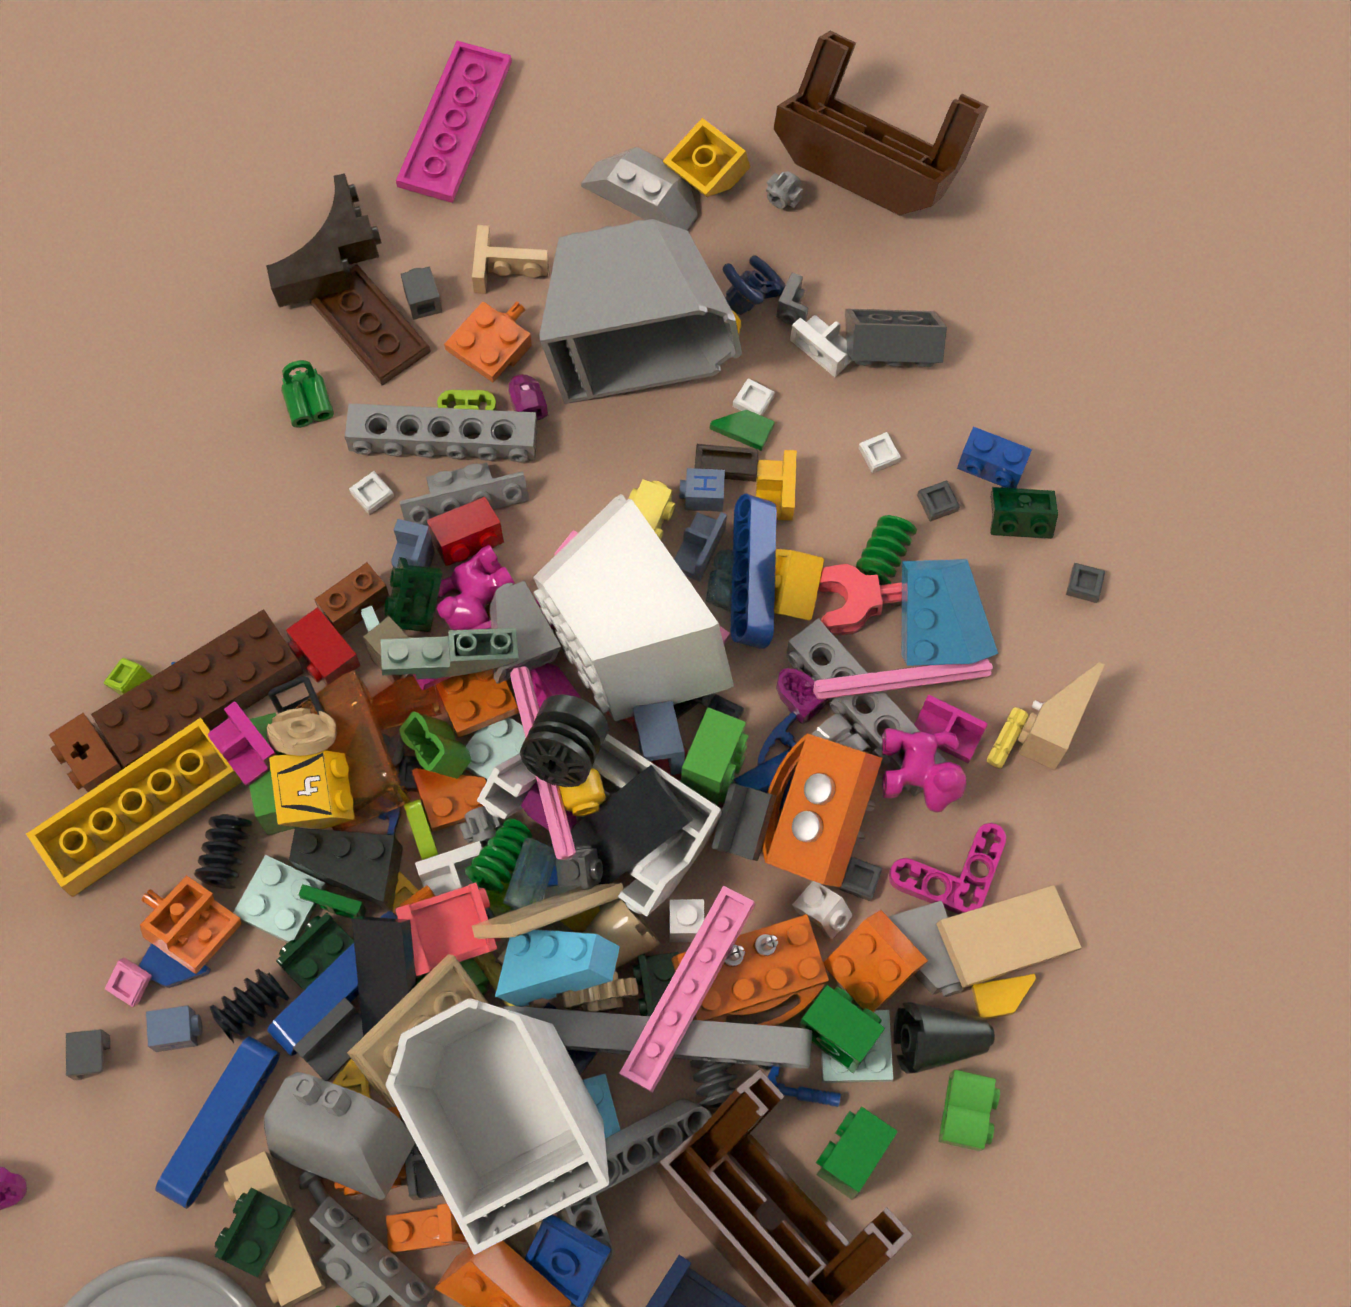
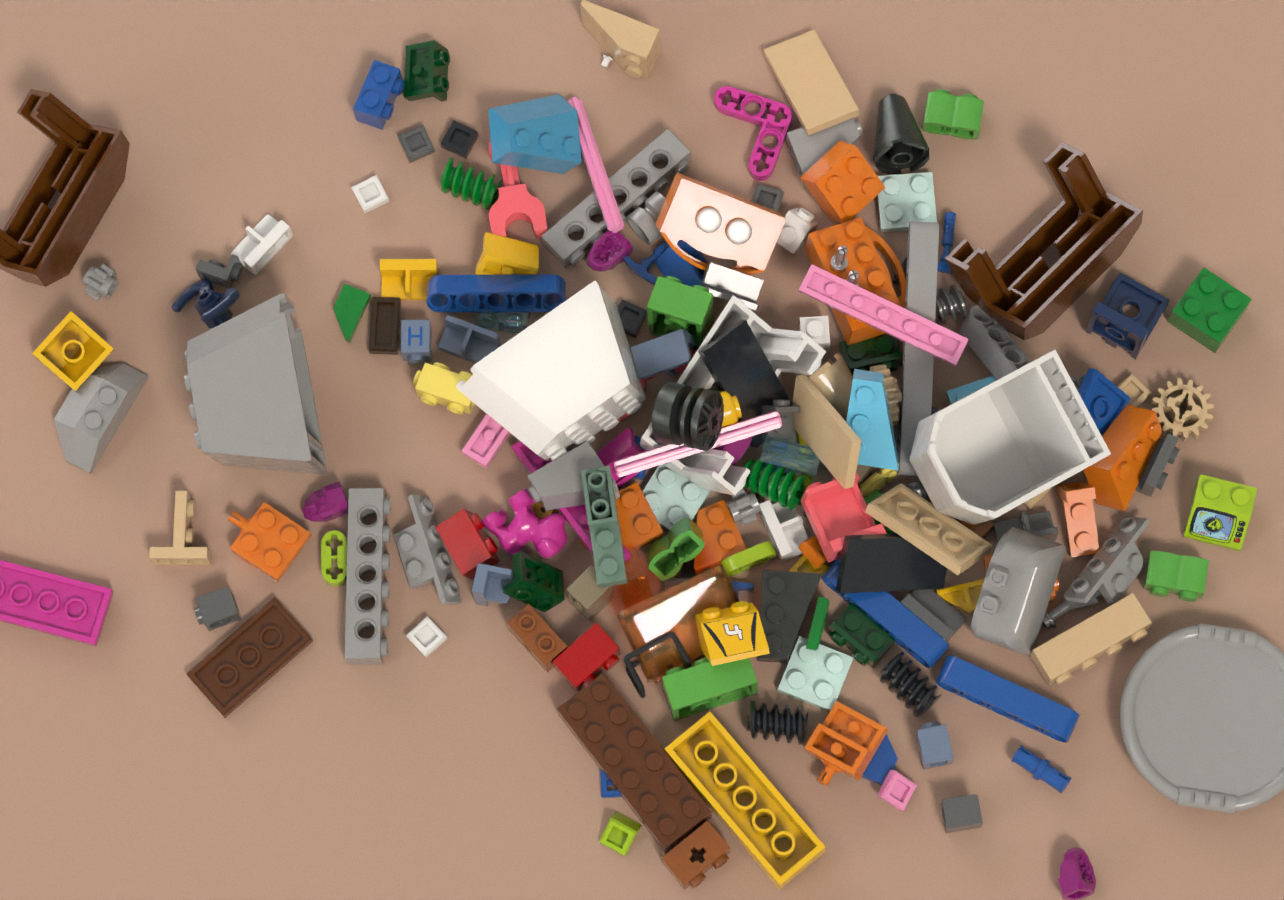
camera: 85 degrees left, 5 degrees up
(128, 1156) = (1041, 769): none -> blue pin
(242, 745) = (696, 697): dark pink panel -> none
(253, 1232) = (1098, 646): dark green bracket -> none
(301, 732) = (683, 646): tan tile -> none
(305, 395) = (330, 706): green piece -> none
(326, 259) = (193, 700): dark brown arch -> none
(369, 618) = (561, 618): light aqua tile -> none
(753, 397) = (319, 304): white tile -> none
(842, 1027) = (901, 203): green brick -> none
(856, 1153) = (995, 194): green brick -> none
(895, 336) = (255, 180): dark grey slope -> none
(940, 782) = (689, 130): dark pink animal -> none
(941, 717) = (632, 132): dark pink panel -> none
(942, 544) = (459, 139): none -> black tile
(1001, 996) = (859, 88): yellow tile -> none
(1007, 737) = (636, 86): light yellow axle -> none
(1085, 582) = (490, 23): dark grey tile -> none

